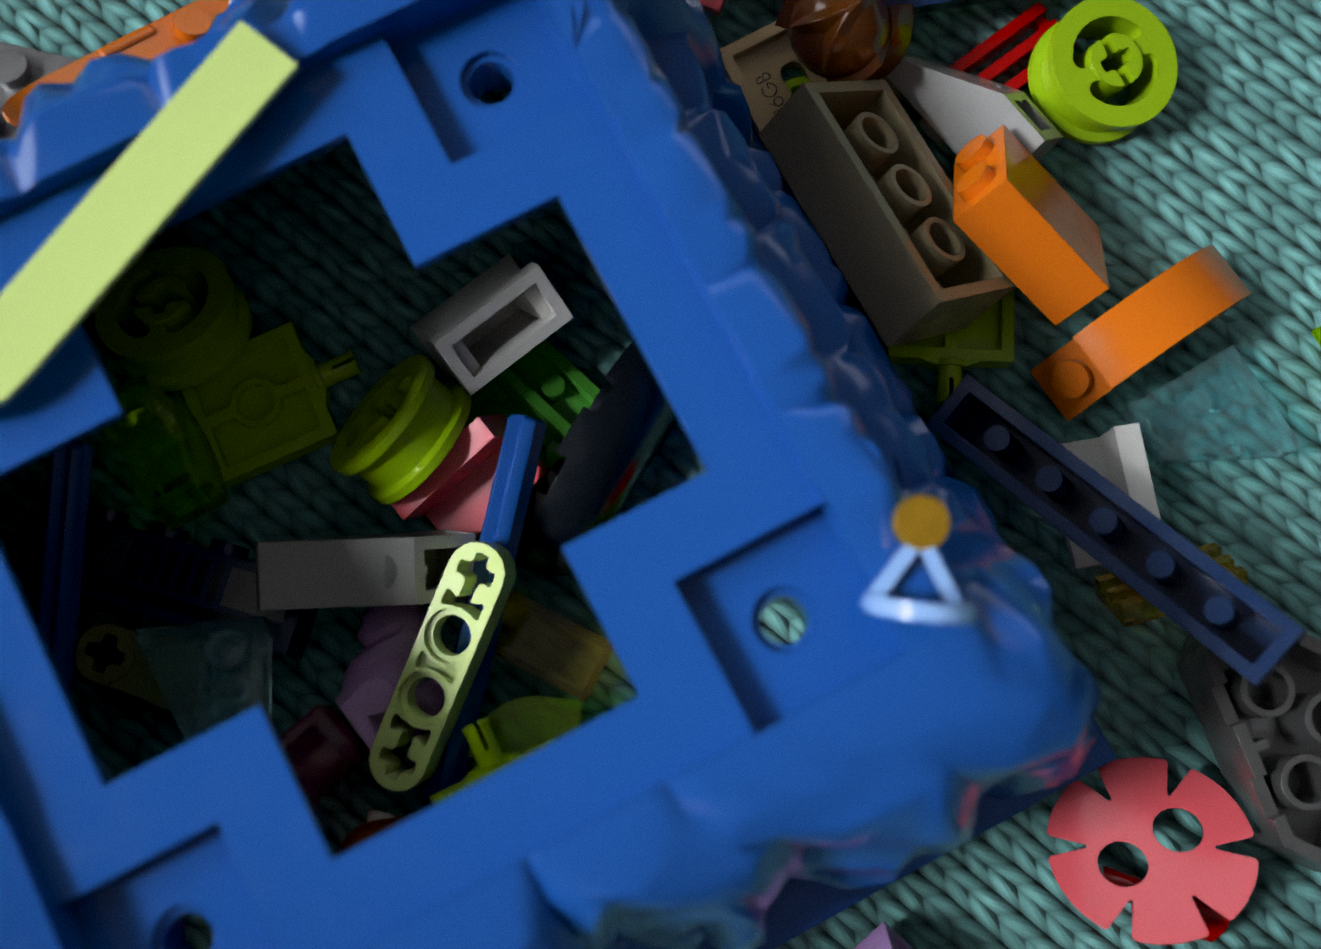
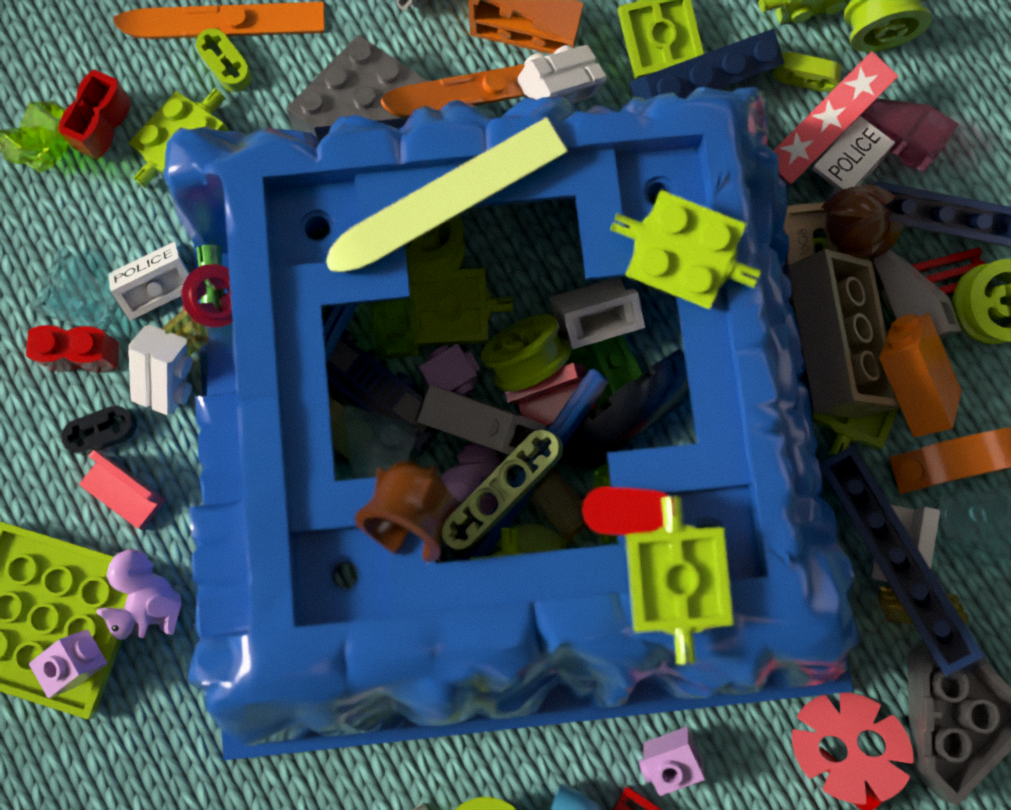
camera: 20 degrees right, 0 degrees up
(231, 781) = (407, 500): none -> reddish brown helmet
(295, 504) = (451, 370): none -> lavender brick
(557, 152) = (685, 249): none -> lime plate
(633, 635) = (624, 510): none -> red tile
(759, 722) = (678, 580): none -> lime plate
(920, 526) = (798, 516): light blue piece -> none

